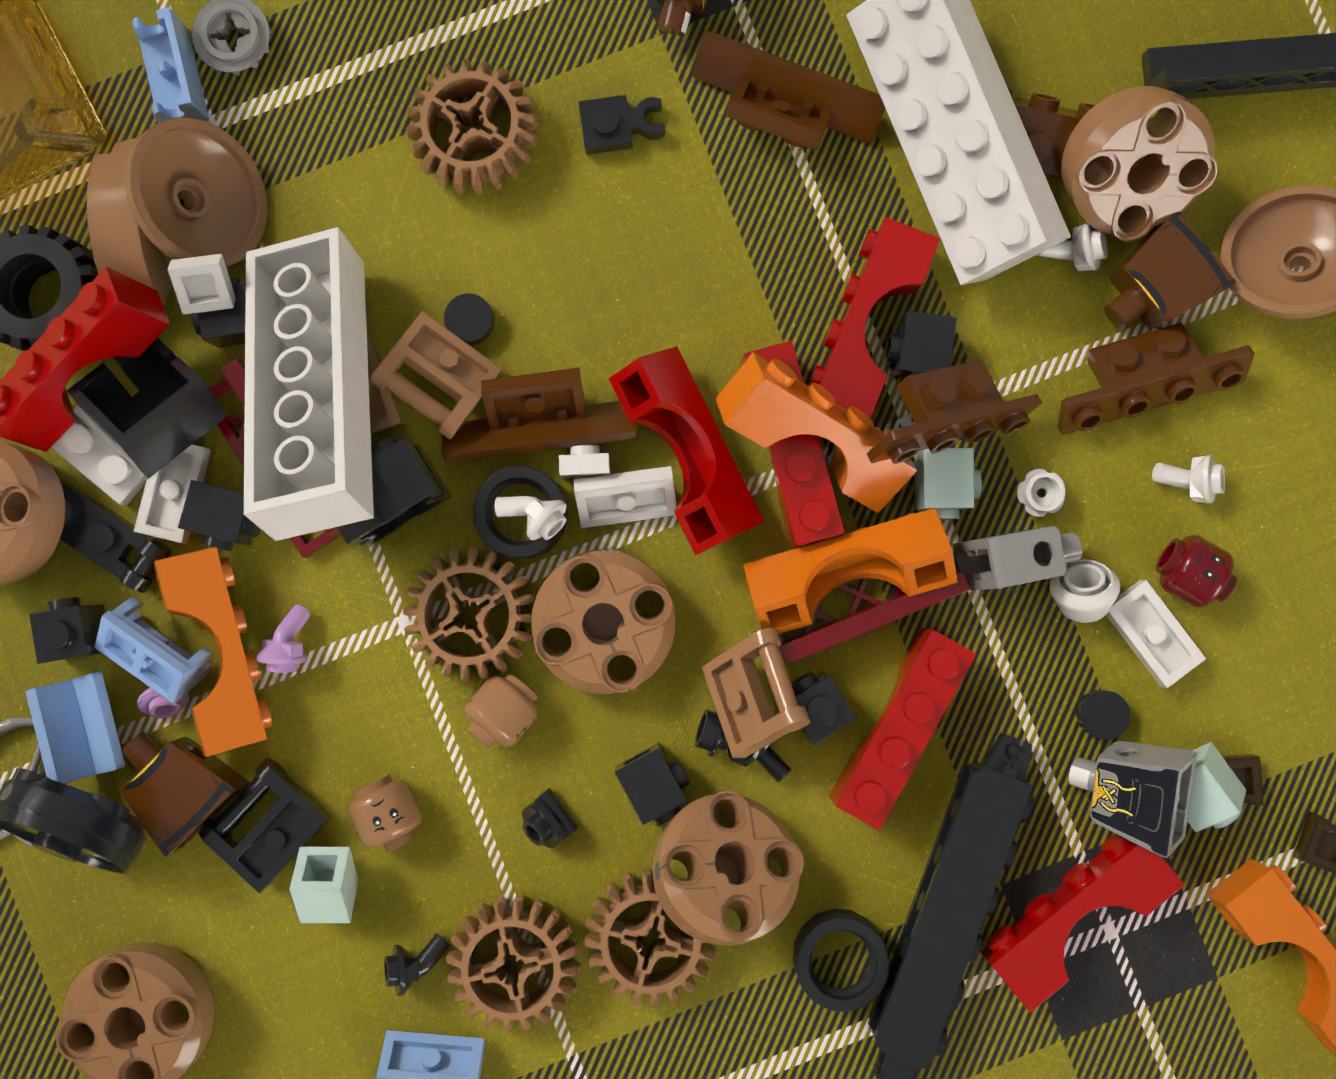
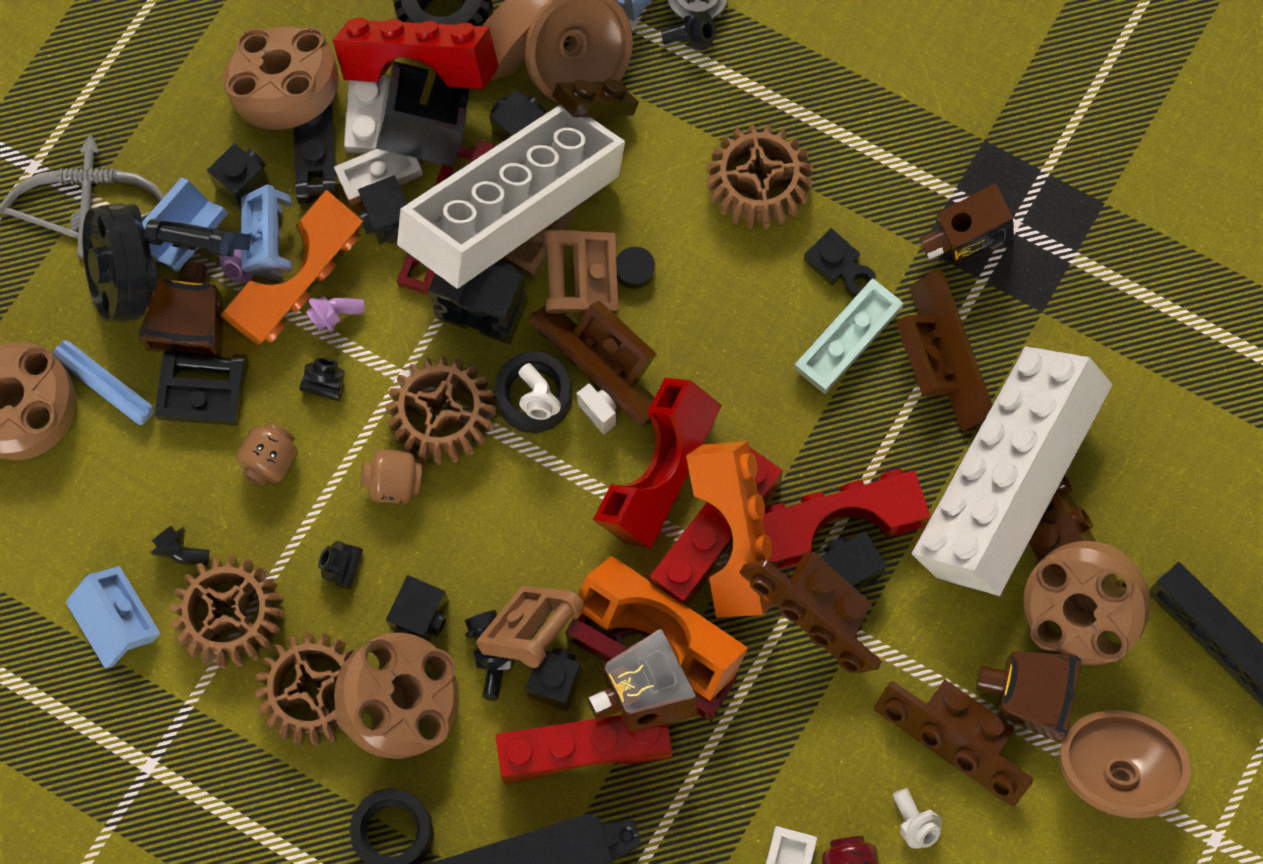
camera: 55 degrees right, 15 degrees down
(104, 729) = (191, 237): none -> black plate
(184, 916) = (103, 382): none -> light blue axle
(202, 284) = (523, 89): white plate -> none
(266, 221) = (595, 98): none -> dark brown plate
(270, 64) = (698, 29): none -> black plate
(324, 885) = (191, 449): light aqua brick -> none
(348, 701) = (323, 379): none -> black plate
(603, 622) = (502, 496): medium nougat piece -> none
(625, 497) = (596, 449): white plate -> none
(699, 172) = (848, 336): none -> light aqua plate
(907, 636) = (645, 686): none -> torso
(946, 481) = (775, 650): light aqua brick -> none
(1016, 557) = (745, 724): light grey torso -> none
(1053, 488) = (824, 712): white plate -> none
(1085, 590) = (775, 799): white cone -> none
(1086, 248) = (1009, 625): white plate -> none

